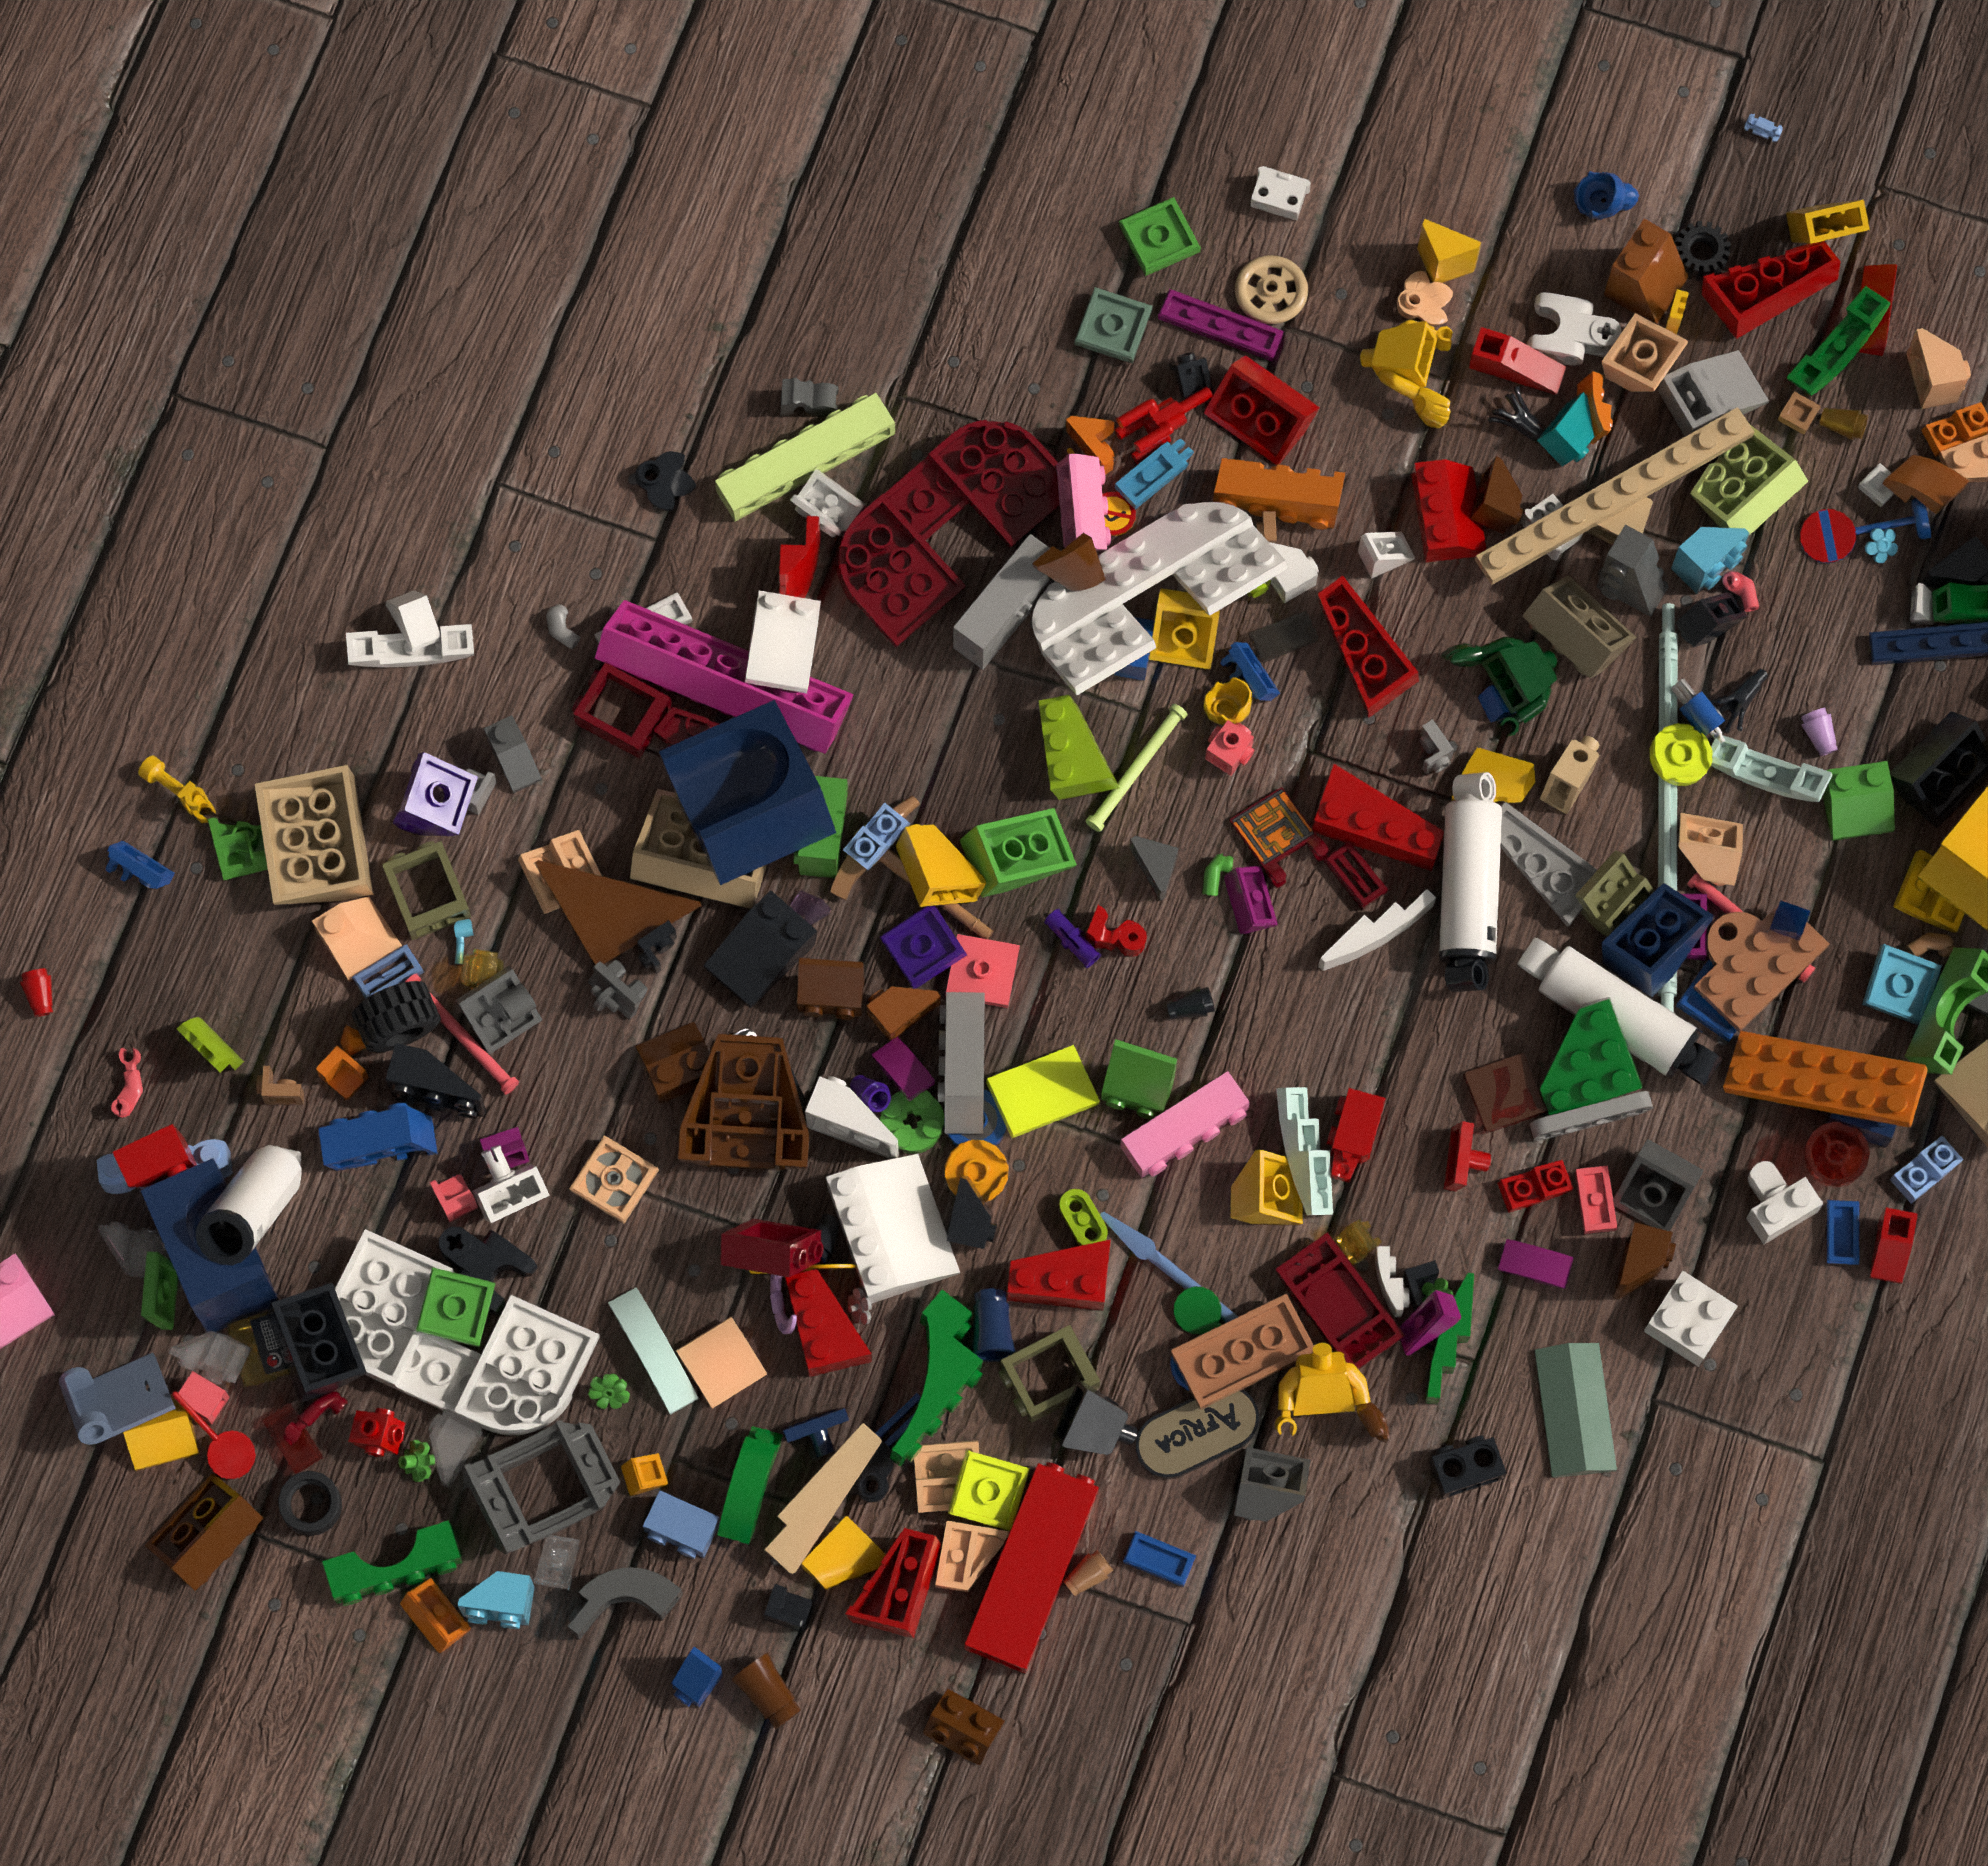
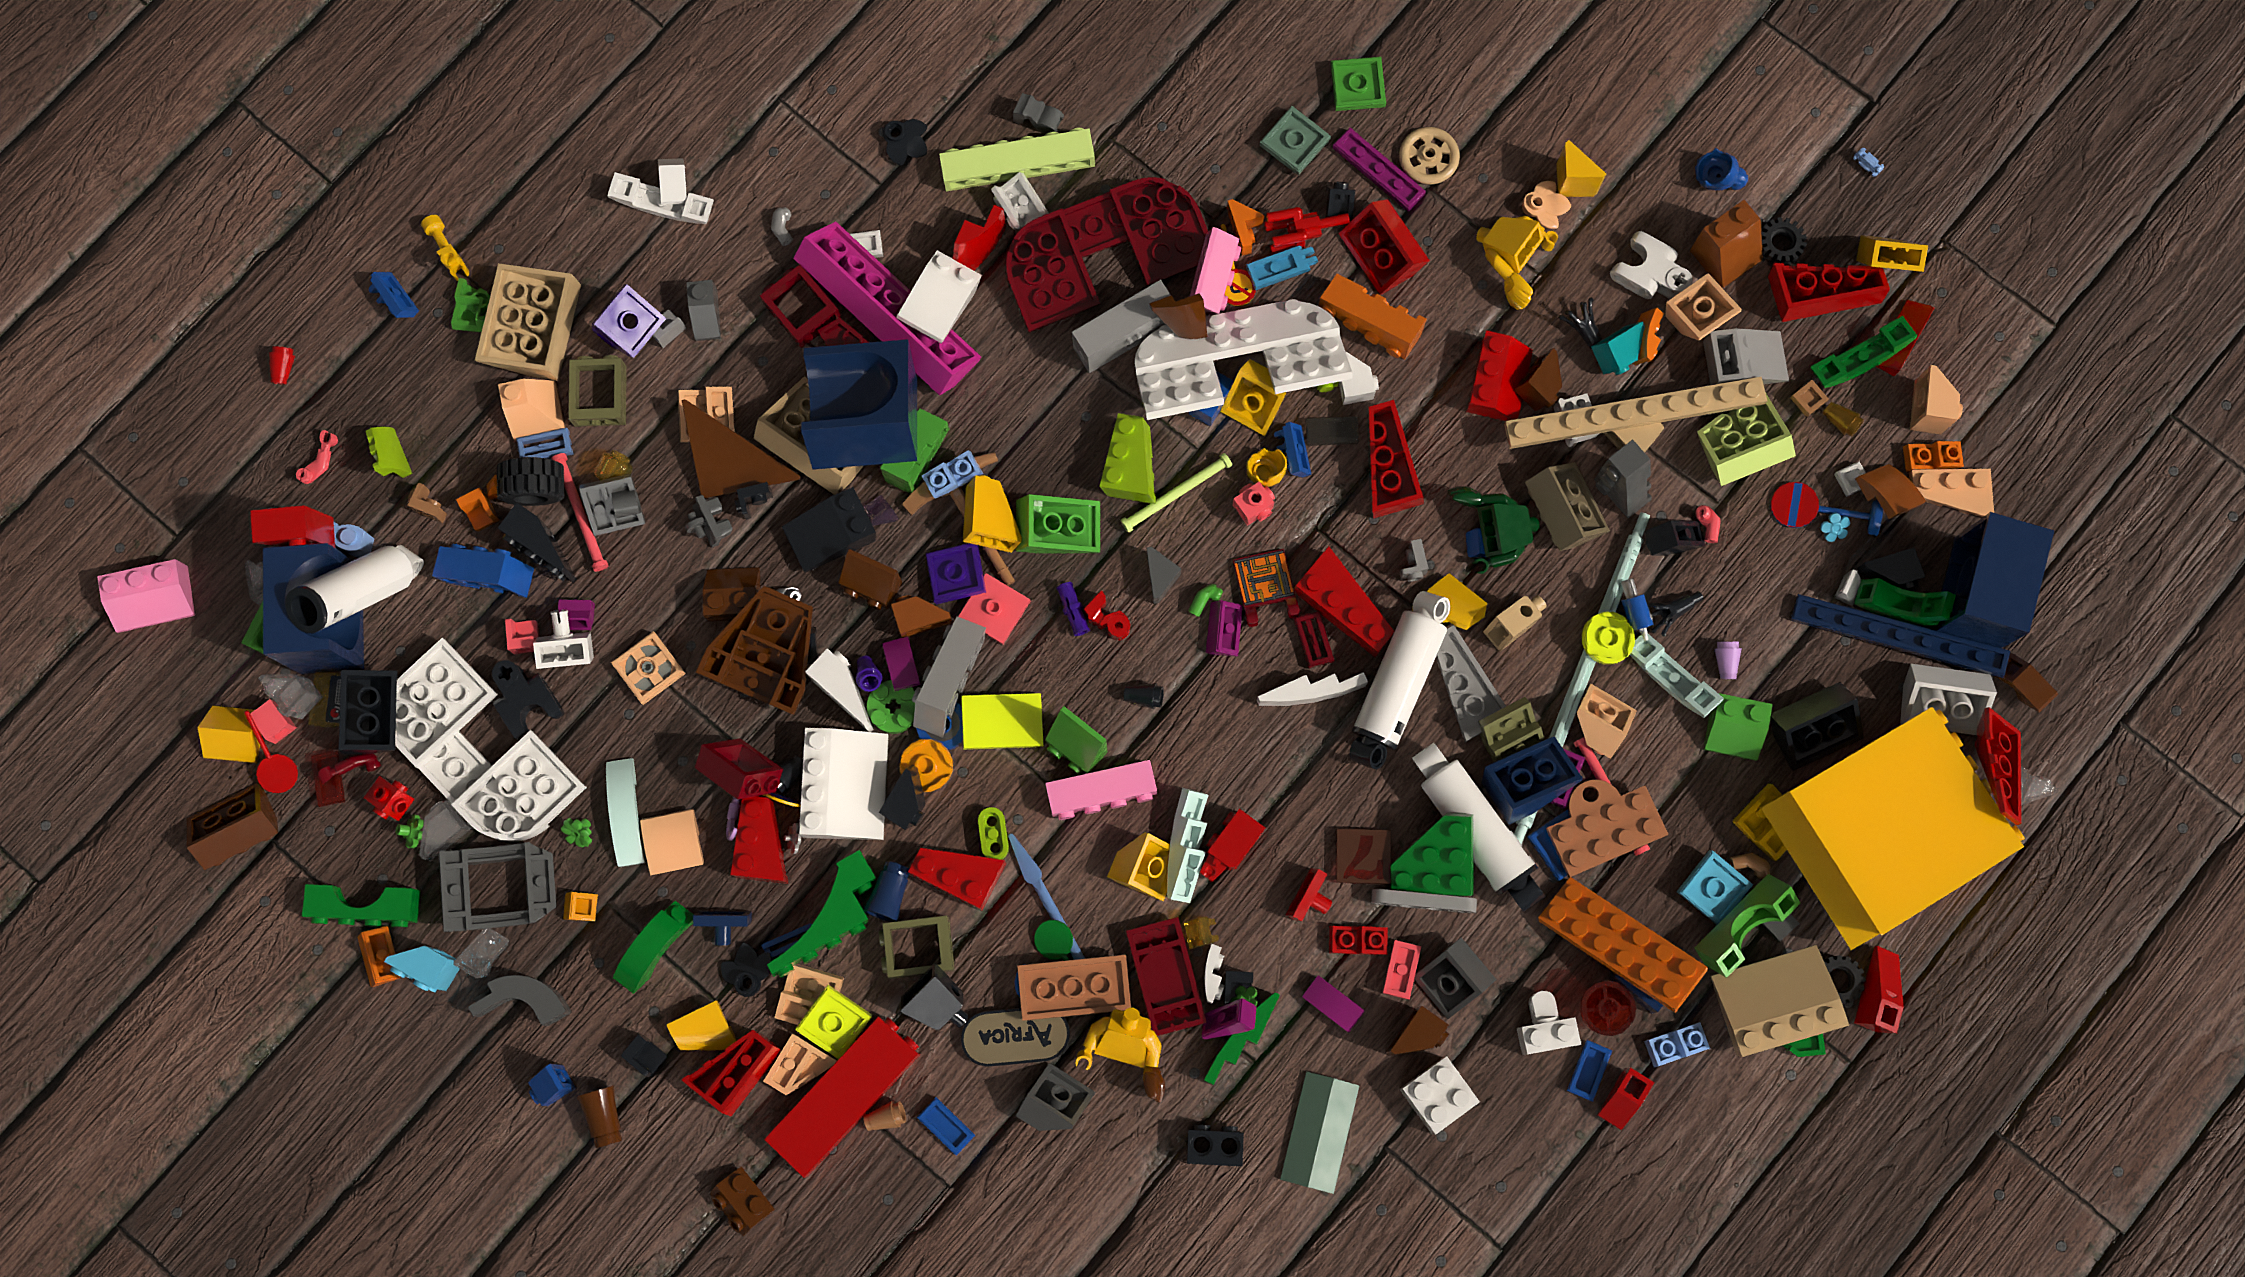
camera: 25 degrees right, 5 degrees up
(115, 1399) = (205, 700): sand blue door -> none
(321, 1525) = (303, 821): black tyre -> none
(455, 1307) = (484, 724): bright green plate -> none
(462, 929) = (612, 432): medium azure hand -> none
(681, 1525) = (589, 958): medium blue brick -> none
(820, 1498) = (699, 980): tan wedge -> none
(1268, 526) = (1351, 341): medium nougat plate -> none
(1279, 192) = (1465, 82): white piece -> none
(1384, 552) = (1436, 392): white slope -> none
(1515, 361) = (1598, 278): red slope -> none
(1676, 312) = (1742, 283): yellow tile -> none
(1708, 554) = (1692, 485): medium azure slope -> none
(1790, 920) = (1643, 804): clear blue slope -> none

